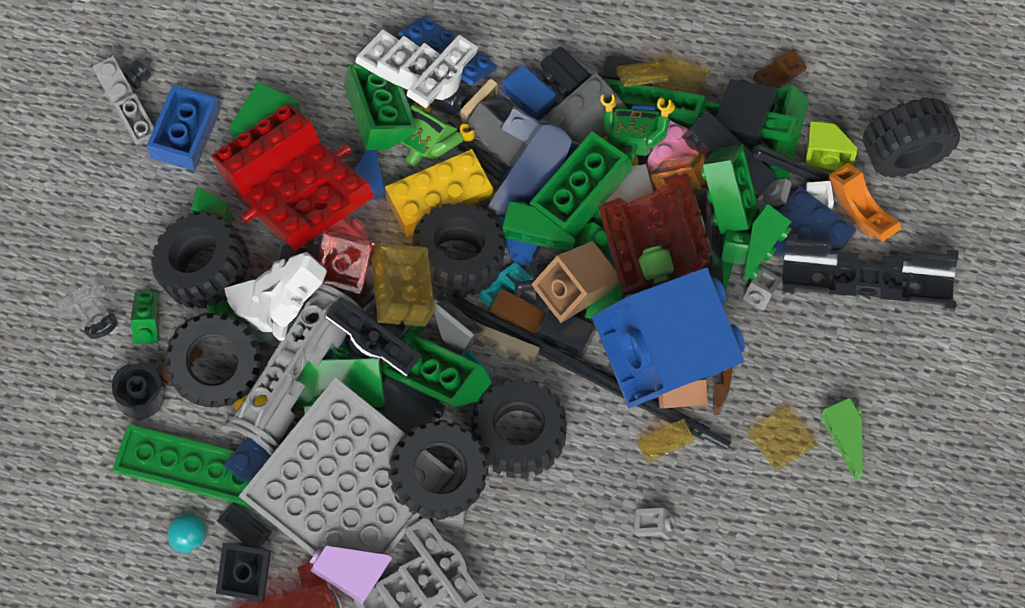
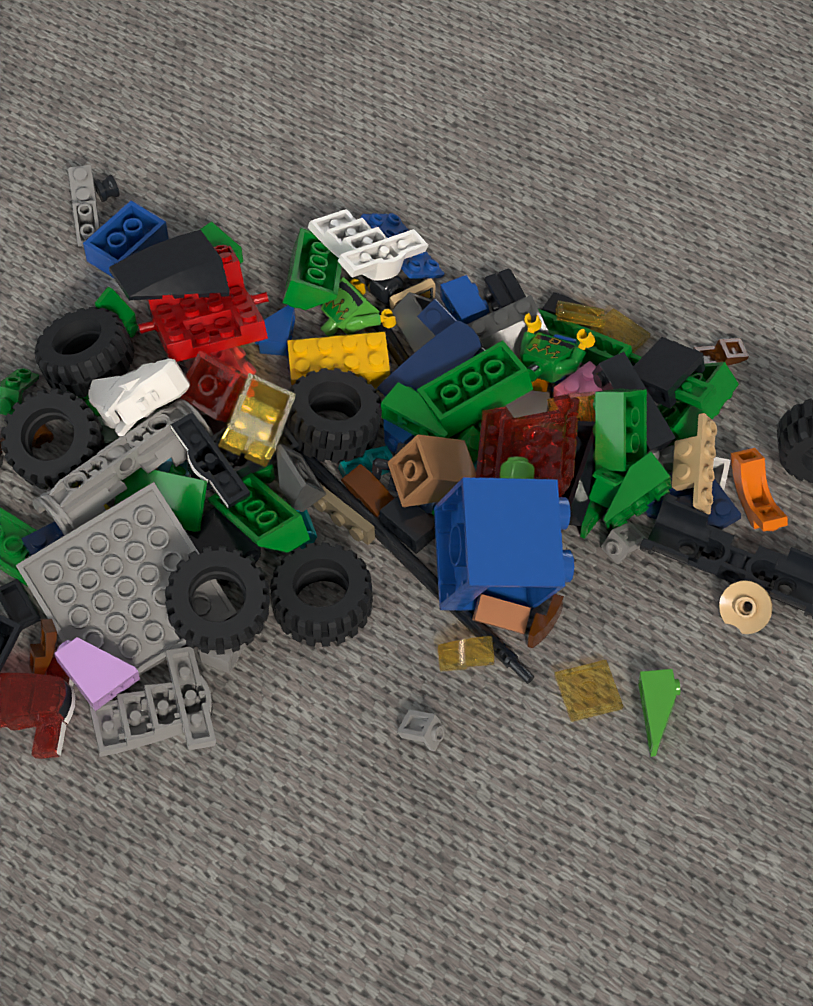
camera: 20 degrees right, 10 degrees down
(254, 151) = (172, 268): none -> black wedge
(294, 566) = (42, 653): none -> reddish brown slope
(789, 164) = (685, 424): black axle -> none
(802, 197) = (695, 462): none -> tan bracket
(828, 147) = (739, 427): lime slope -> none
(893, 328) = (733, 609): none -> tan dish

